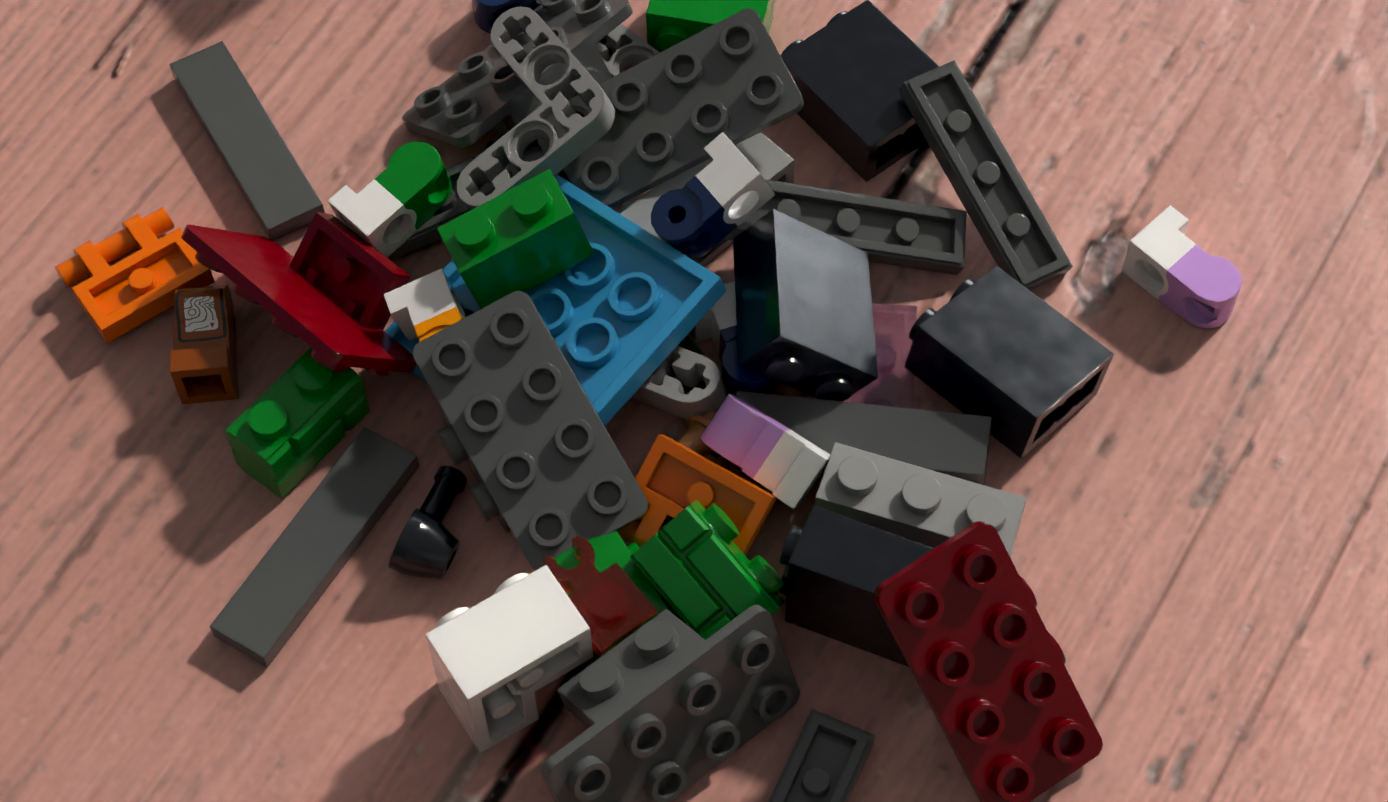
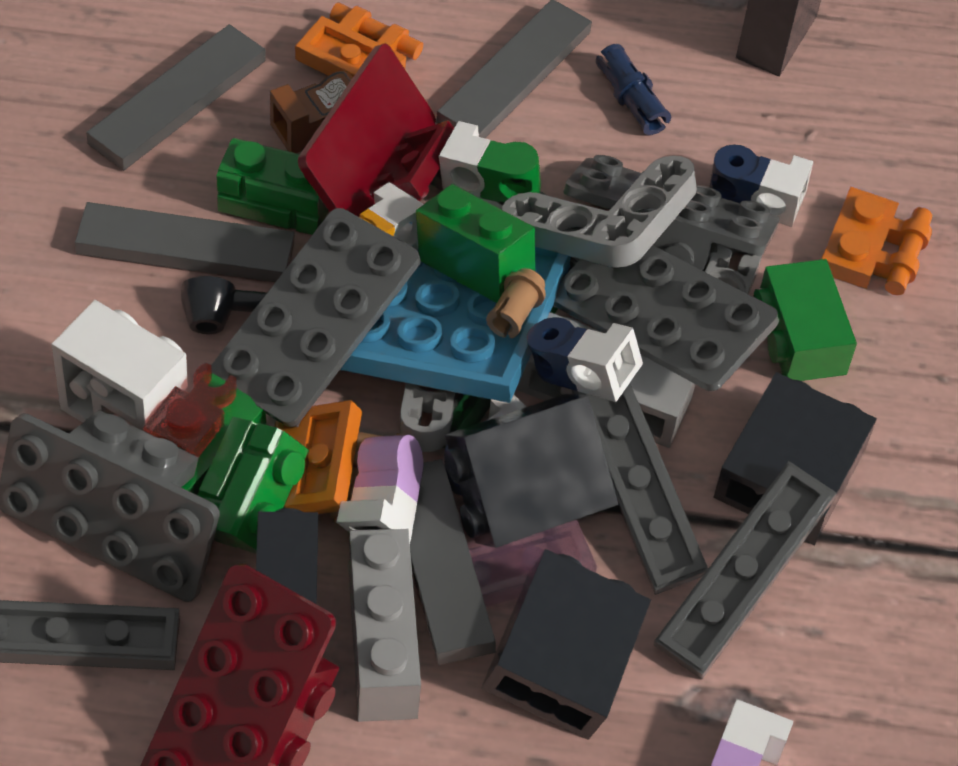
camera: 60 degrees right, 5 degrees down
(95, 484) = (175, 97): none -> dark grey tile
(333, 42) = (633, 89): none -> dark blue pin
(606, 221) = (522, 293): none -> medium nougat pin

